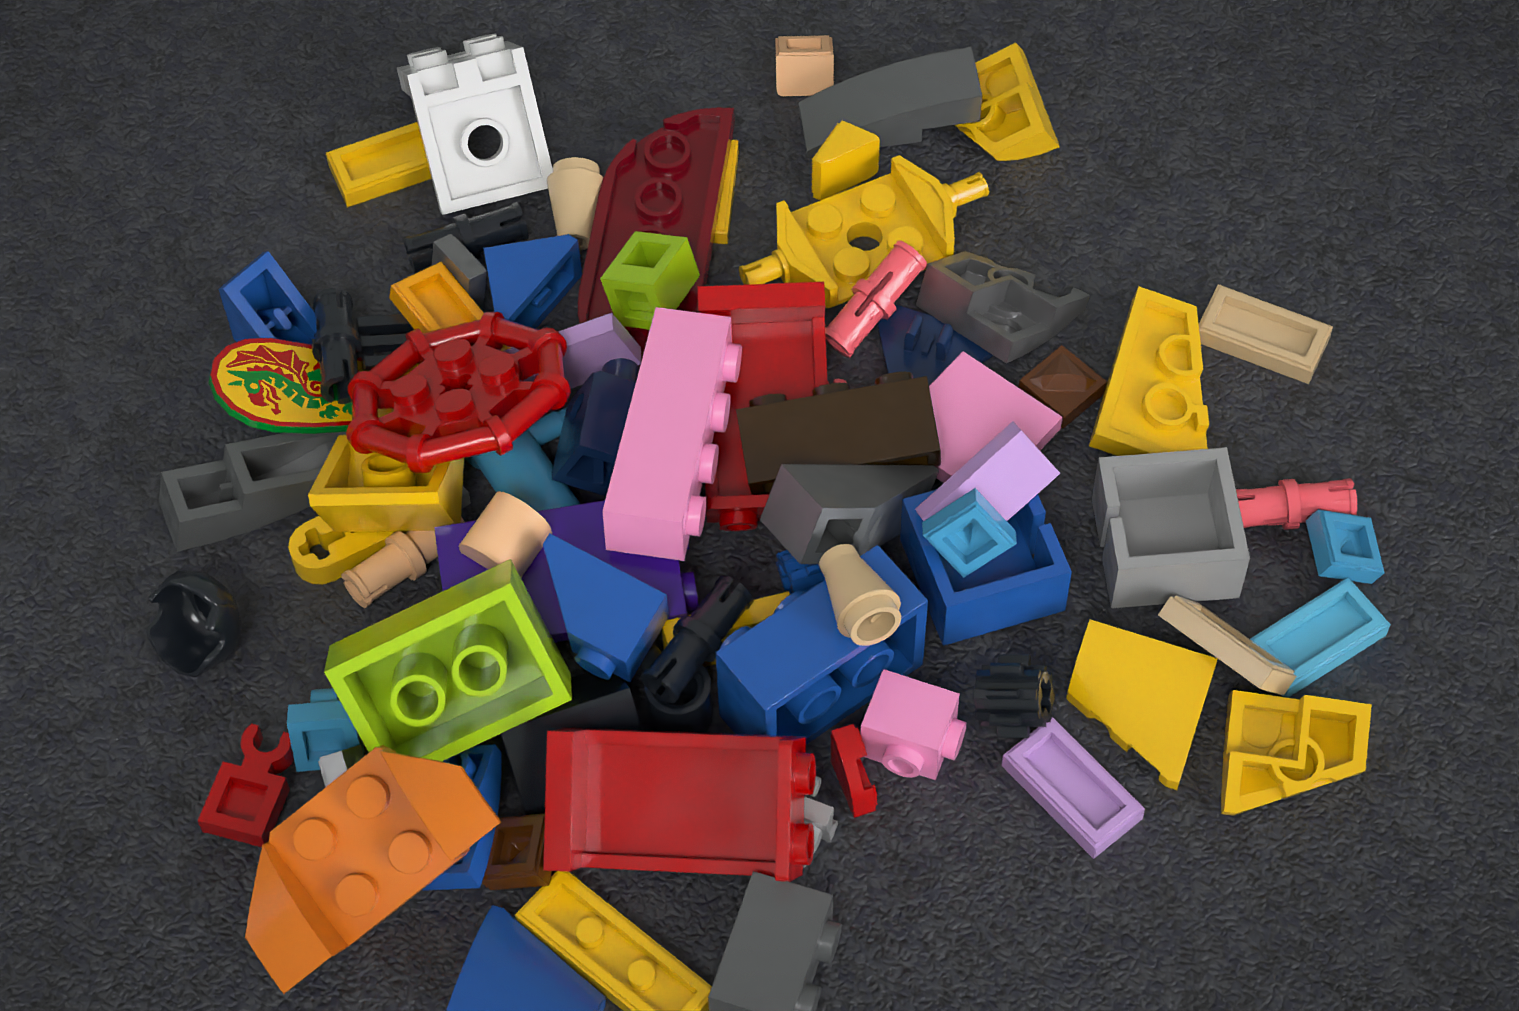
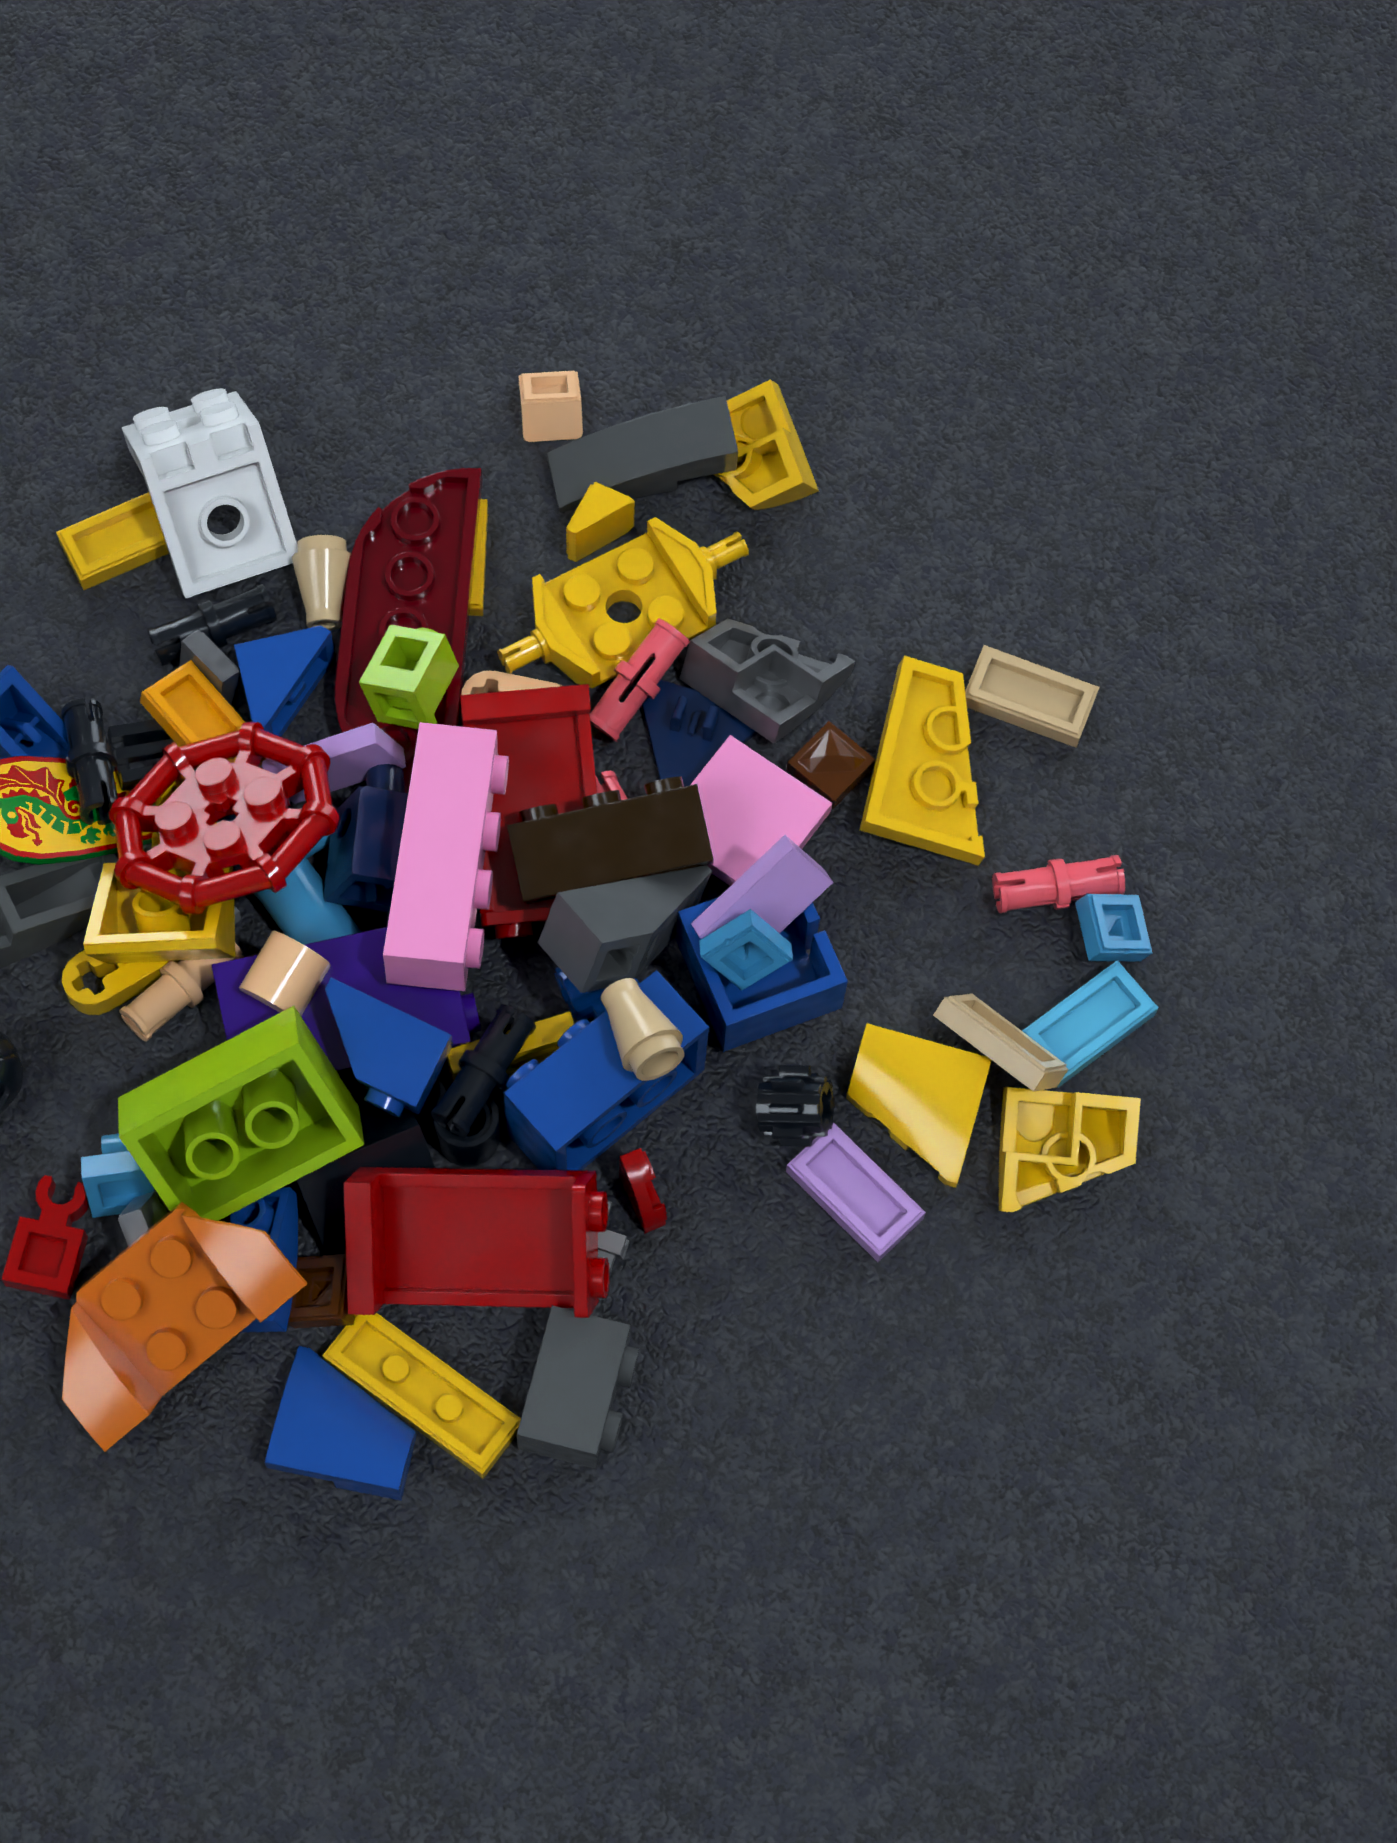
camera: 10 degrees left, 10 degrees up
(912, 726) = (697, 1142): bright pink brick -> none
(1169, 527) = (942, 921): light grey piece -> none

